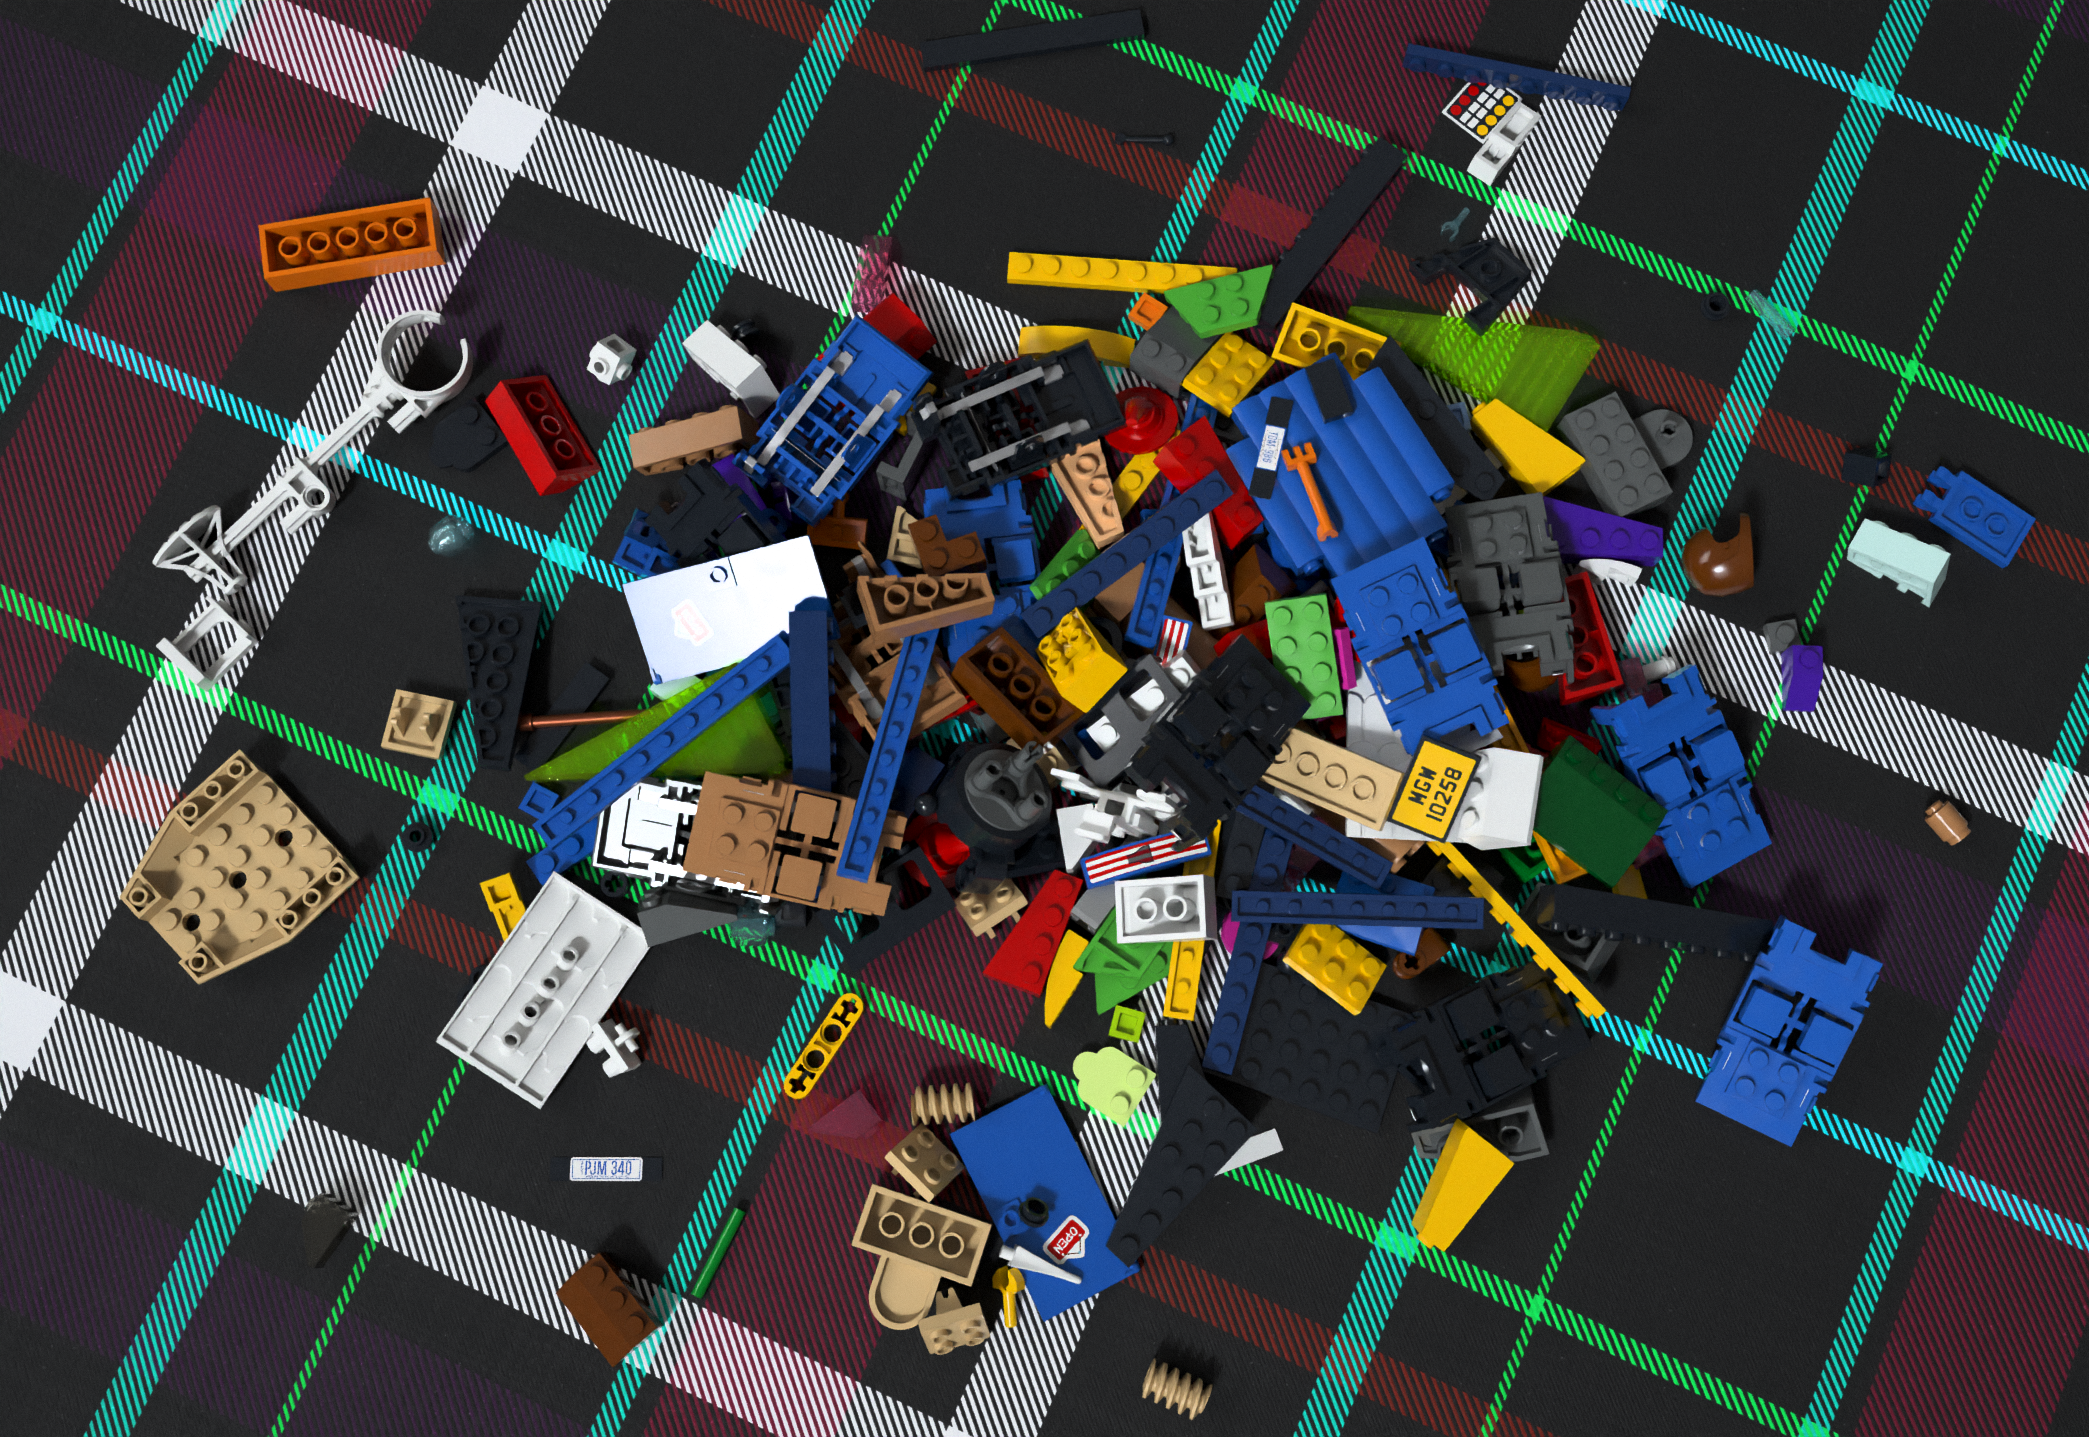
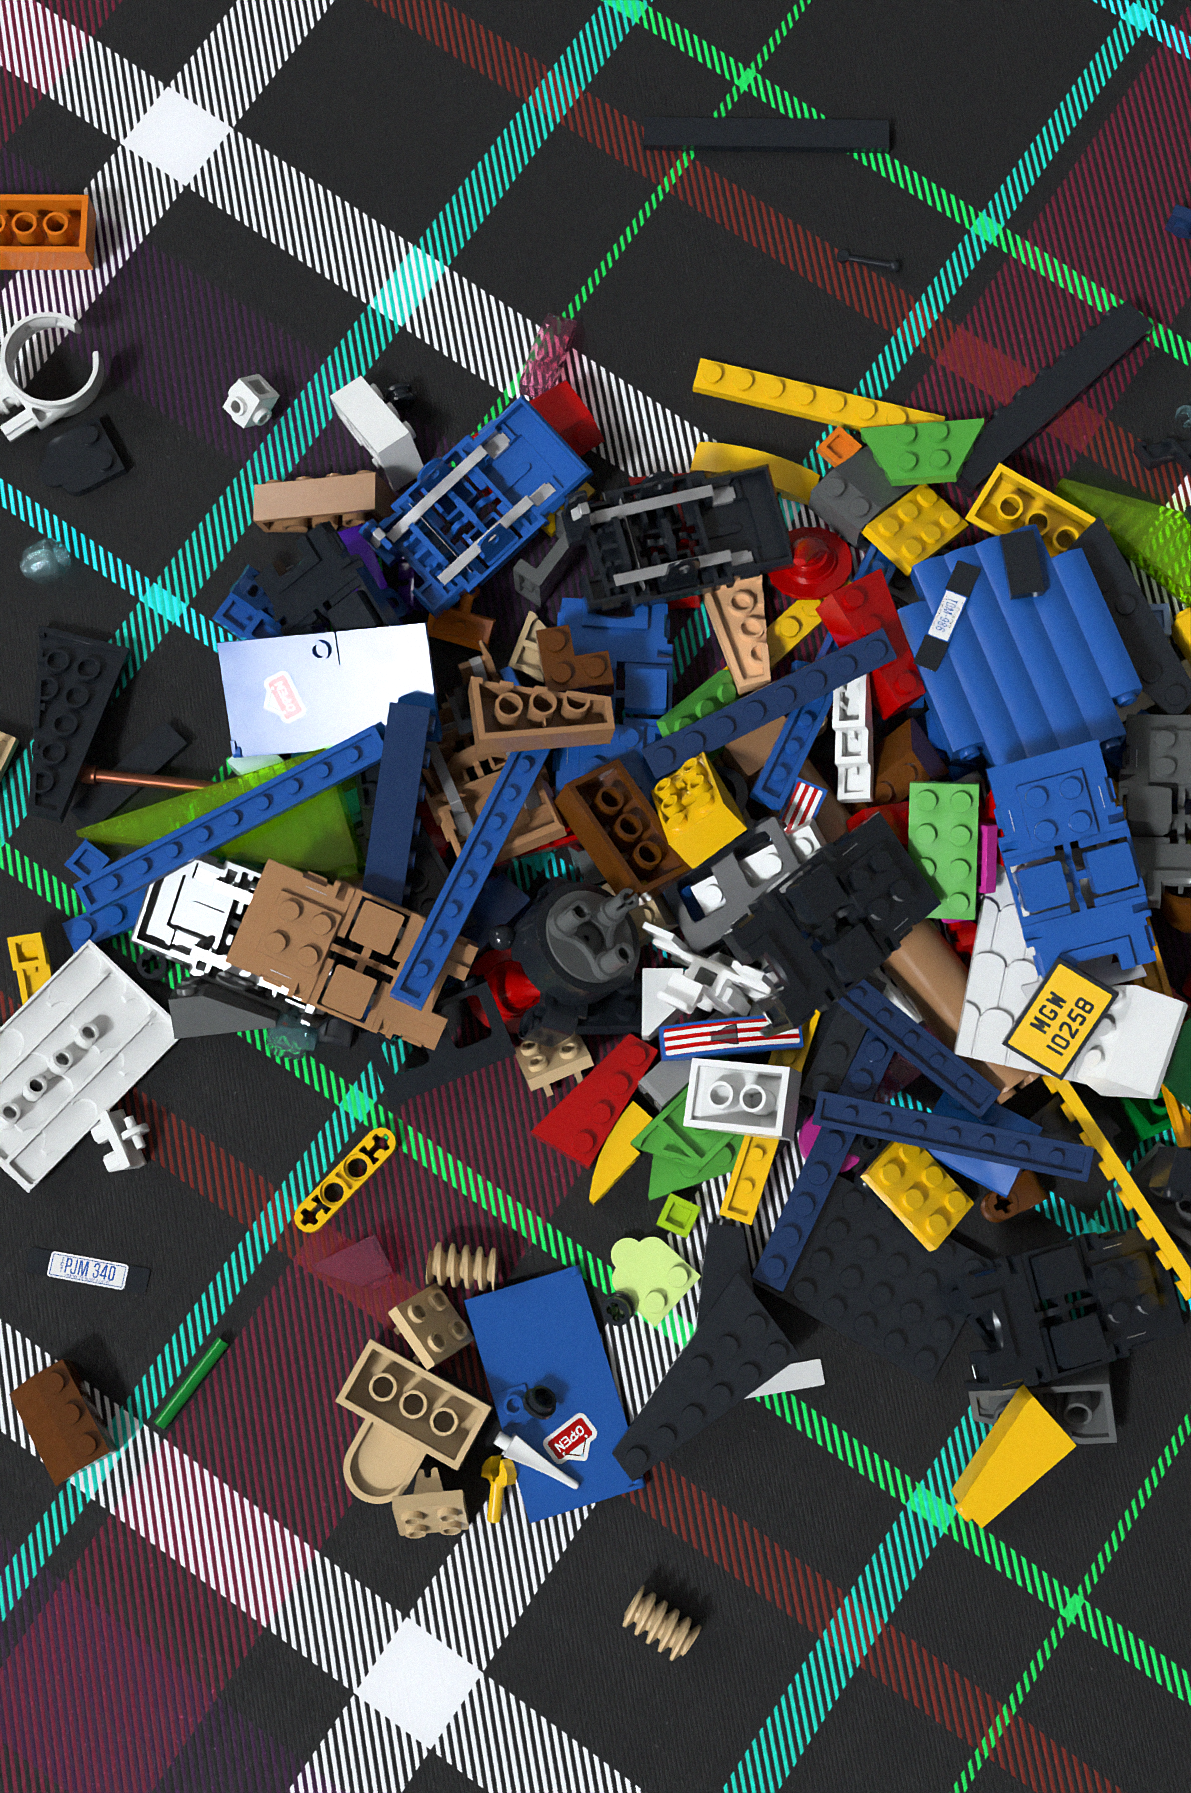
camera: 10 degrees right, 0 degrees up
(542, 434) = (162, 468): red slope -> none
(1094, 1110) = (611, 1312): none -> black bush
(1302, 462) = (978, 639): orange hinge -> none
(1333, 778) = (951, 987): tan plate -> none

